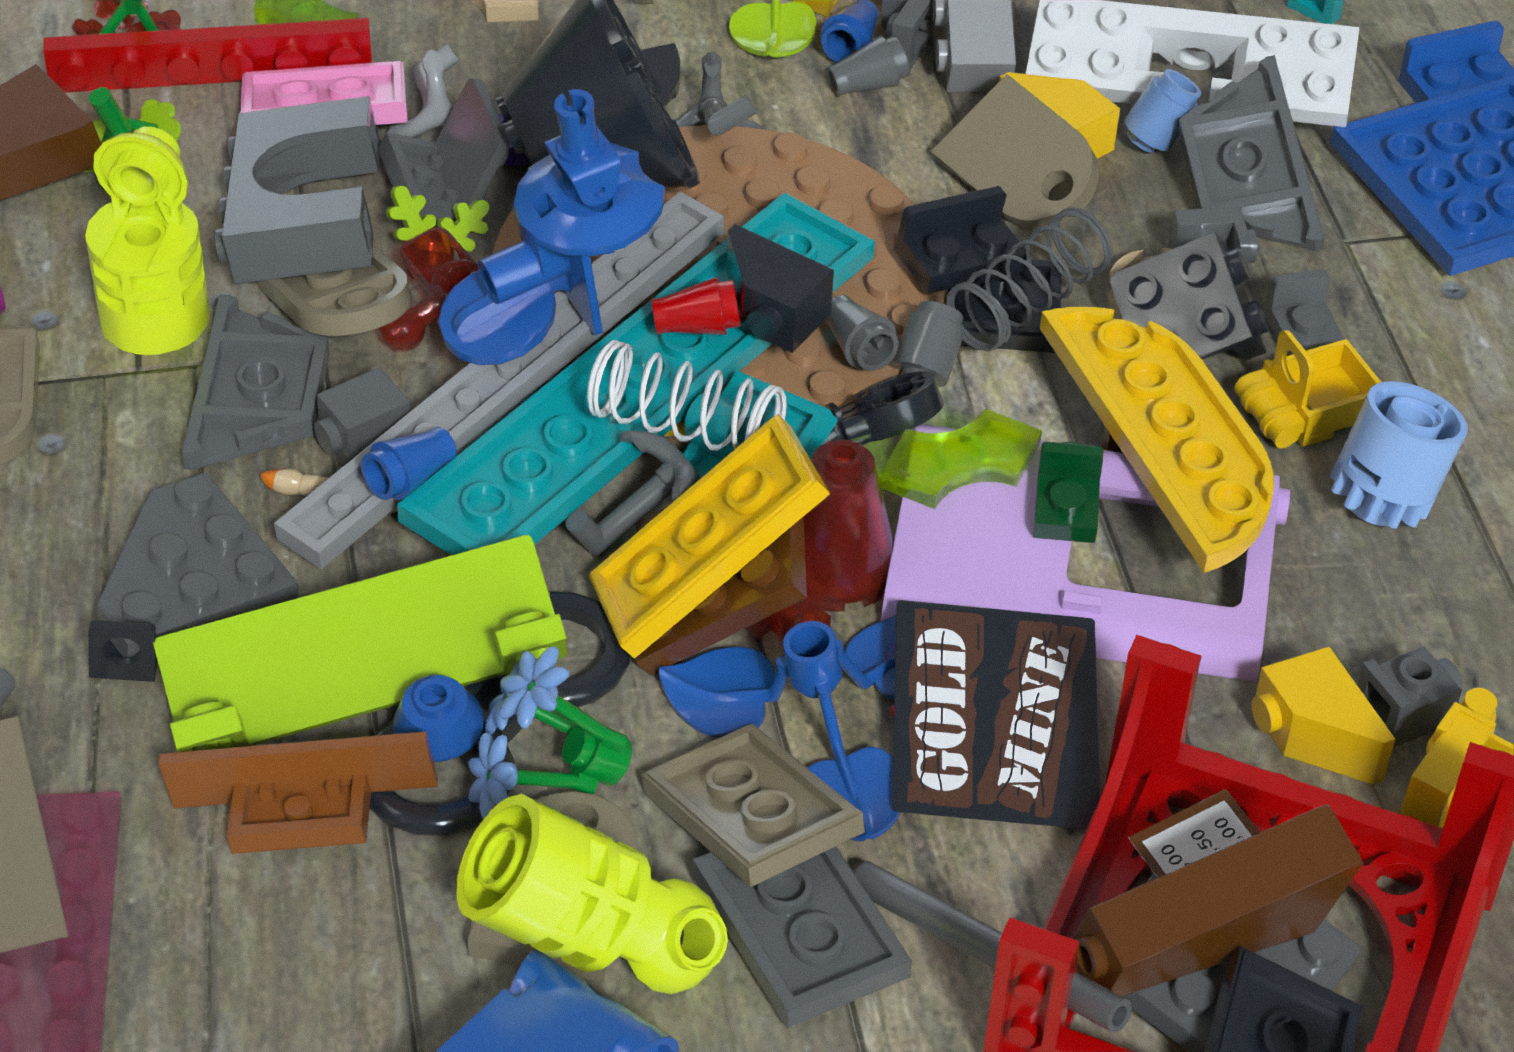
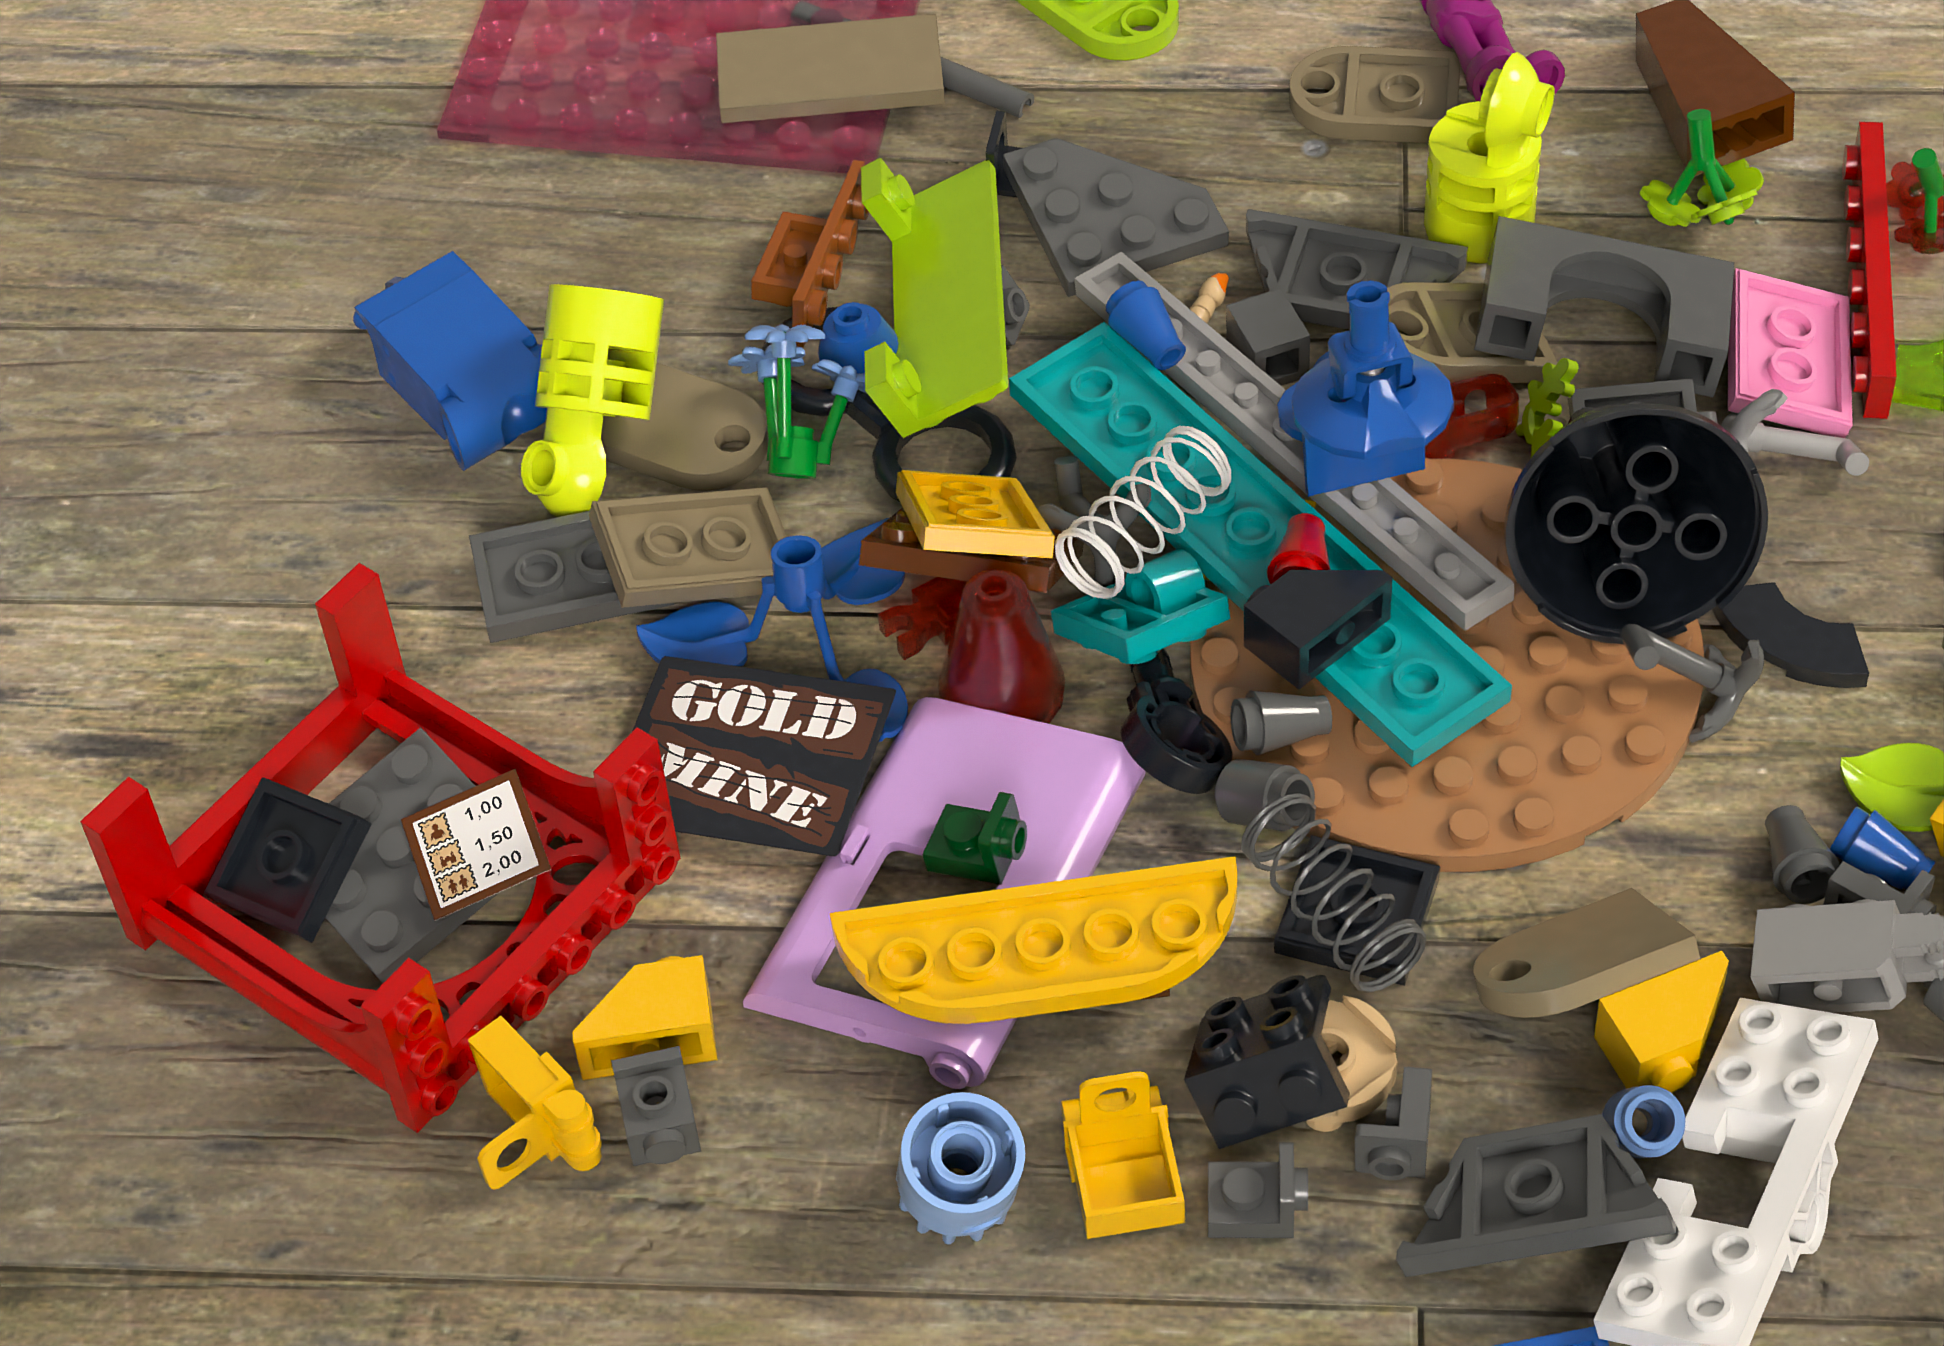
camera: 110 degrees right, 5 degrees up
(935, 464) = (1060, 785): clear neon green tile -> none
(956, 237) = (1419, 849): black bracket -> none
(980, 940) = (460, 664): dark grey piece -> none
(1238, 897) = (392, 798): reddish brown slope -> none

